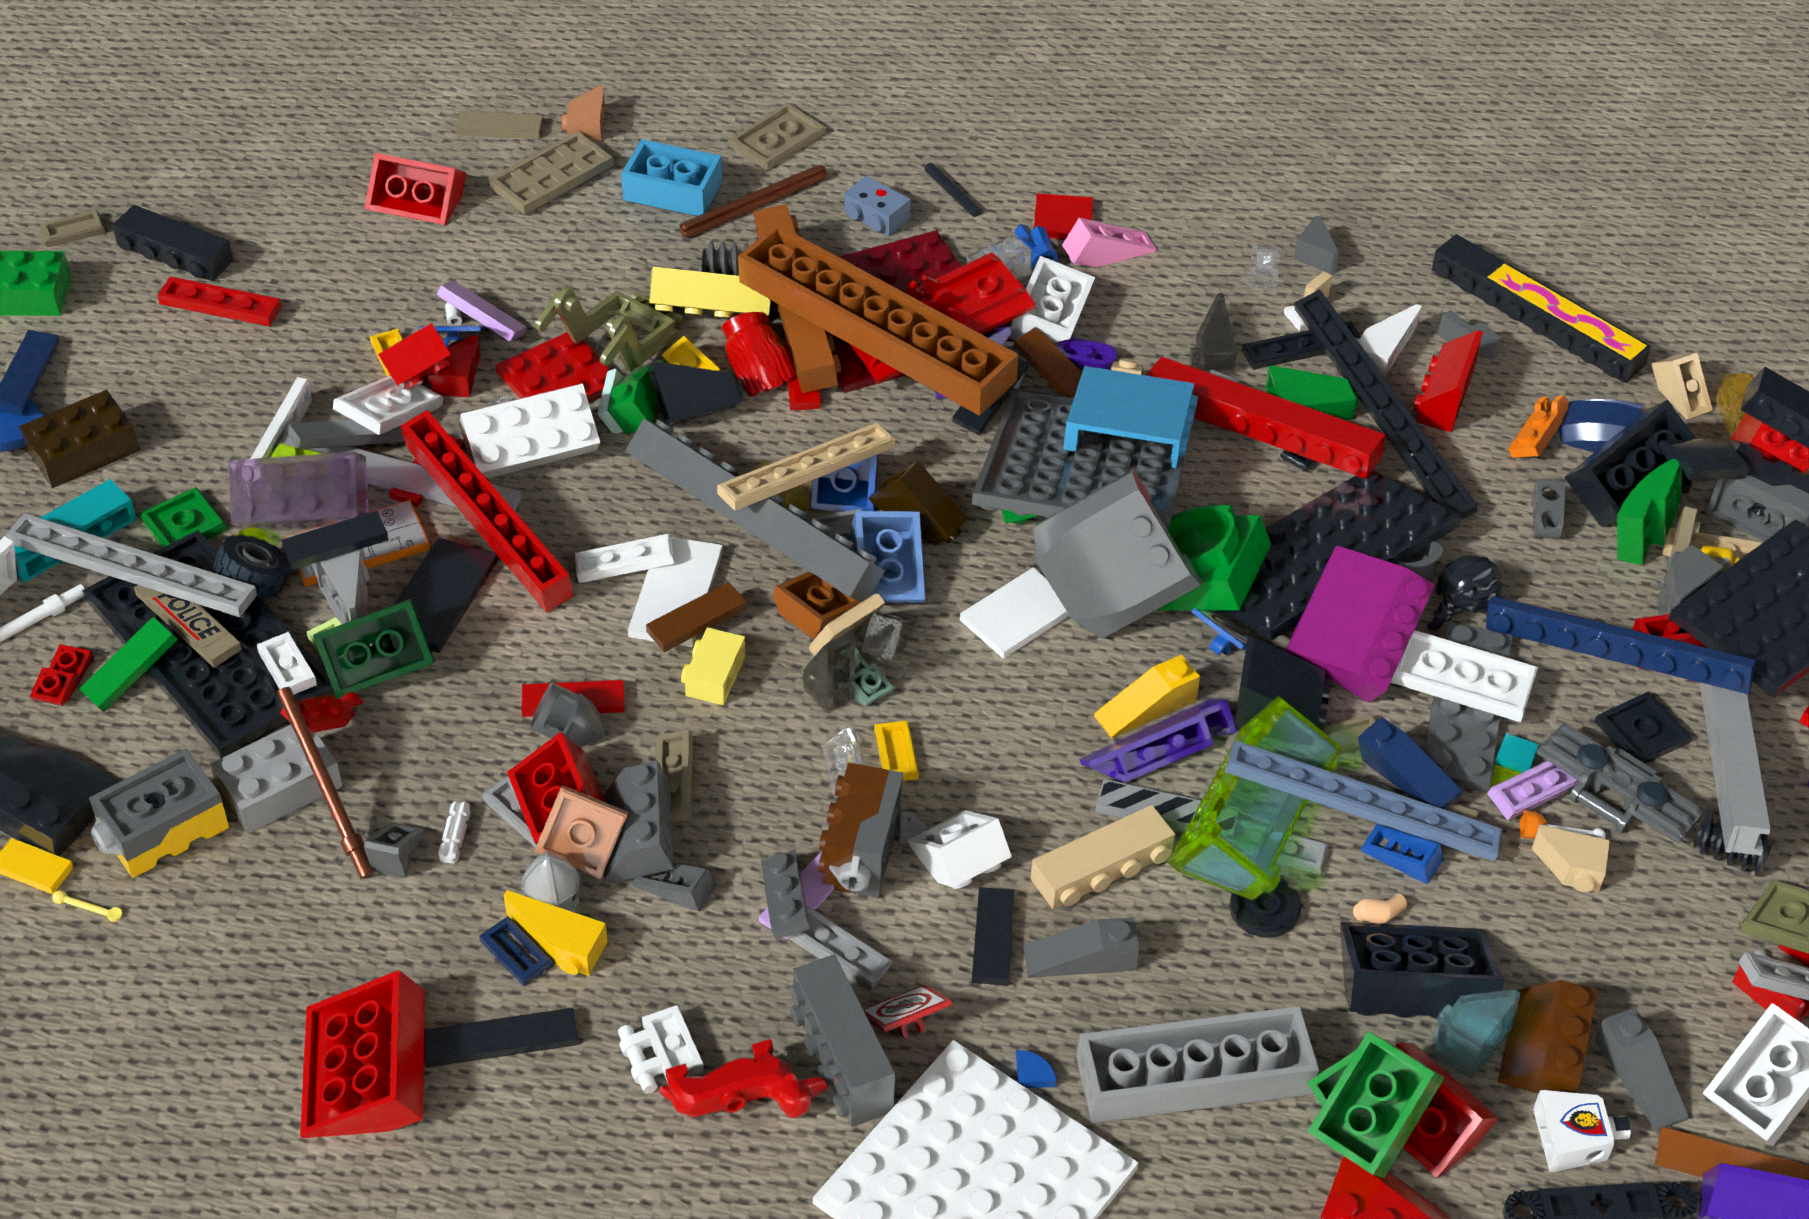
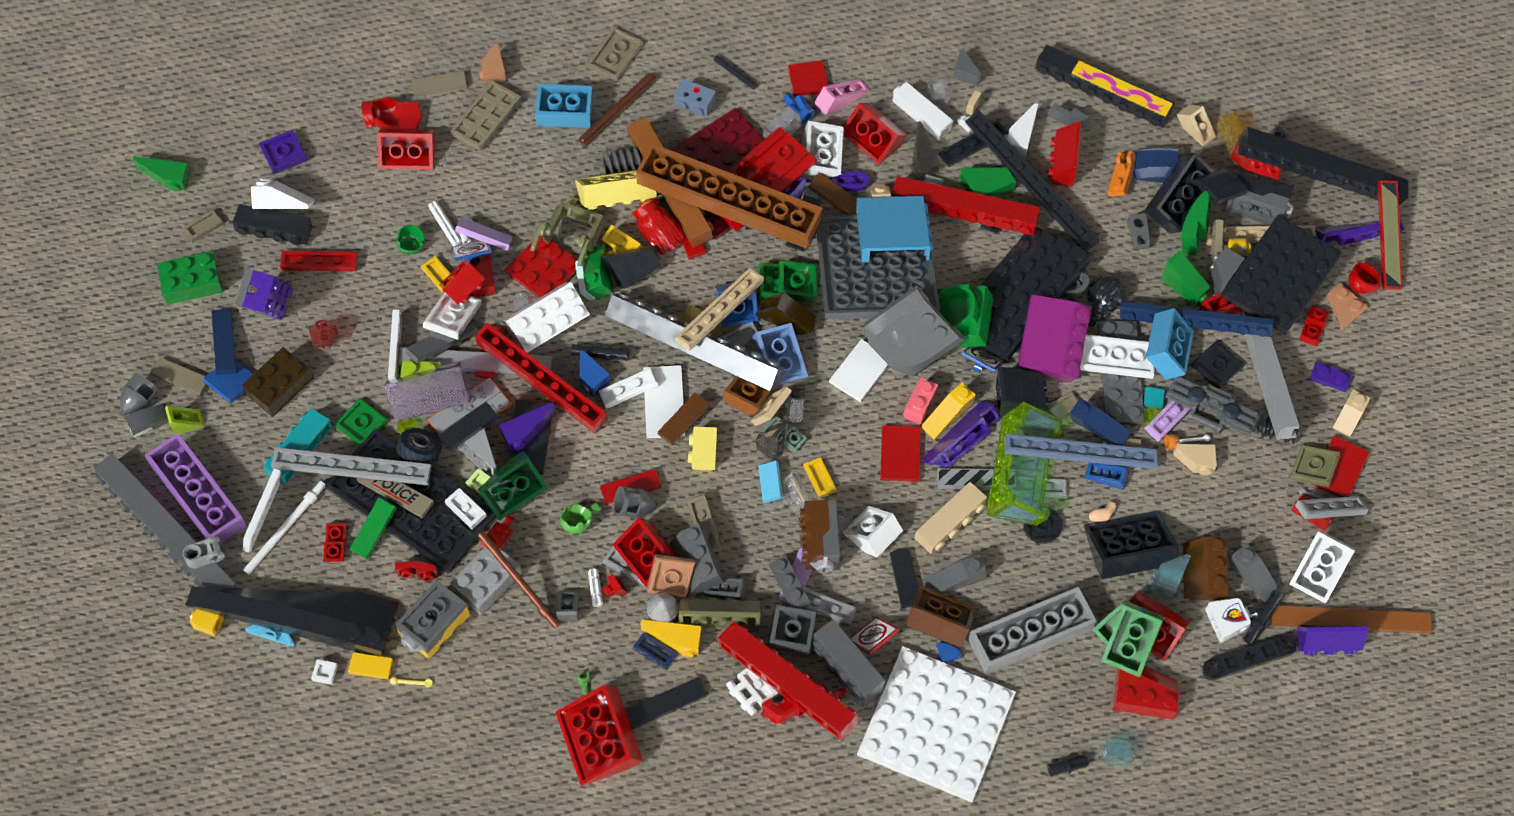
camera: 15 degrees left, 15 degrees up
(53, 154) = (168, 173): none -> green slope
(107, 311) = (264, 294): none -> dark purple piece
(160, 734) = (424, 571): none -> red slope
(167, 390) = (323, 334): none -> clear red brick
(182, 200) = (275, 195): none -> white slope
(232, 161) = (283, 151): none -> dark purple plate
(367, 293) = (407, 235): none -> green hair
(376, 970) = (584, 682): none -> bright green hand
(408, 139) = (391, 114): none -> red hair
(430, 289) = (445, 224): none -> white axle
(438, 572) = (524, 428): none -> dark purple slope
(466, 720) = (578, 518): none -> bright green hair
(486, 835) = (615, 587): none -> red tile
(572, 527) = (592, 375): none -> blue slope
(611, 504) = (600, 352): none -> black pin
(648, 915) = (719, 613): none -> olive slope
(725, 1042) = (788, 681): none -> red brick
(760, 968) = (792, 631): none -> dark grey brick
(809, 738) = (770, 481): none -> medium azure tile
(946, 458) = (792, 278): none -> green slope
(1034, 1005) = (940, 616): none -> reddish brown slope
(1046, 745) = (900, 453): none -> red tile
(1104, 672) = (920, 401): none -> coral brick
(1142, 299) = (873, 132): none -> red slope
(1242, 295) = (922, 110): none -> white brick
(1562, 670) = (1169, 344): none -> dark azure brick
(1610, 584) = (1185, 279): none -> green slope
(1629, 1153) = (1258, 624): none -> black pin

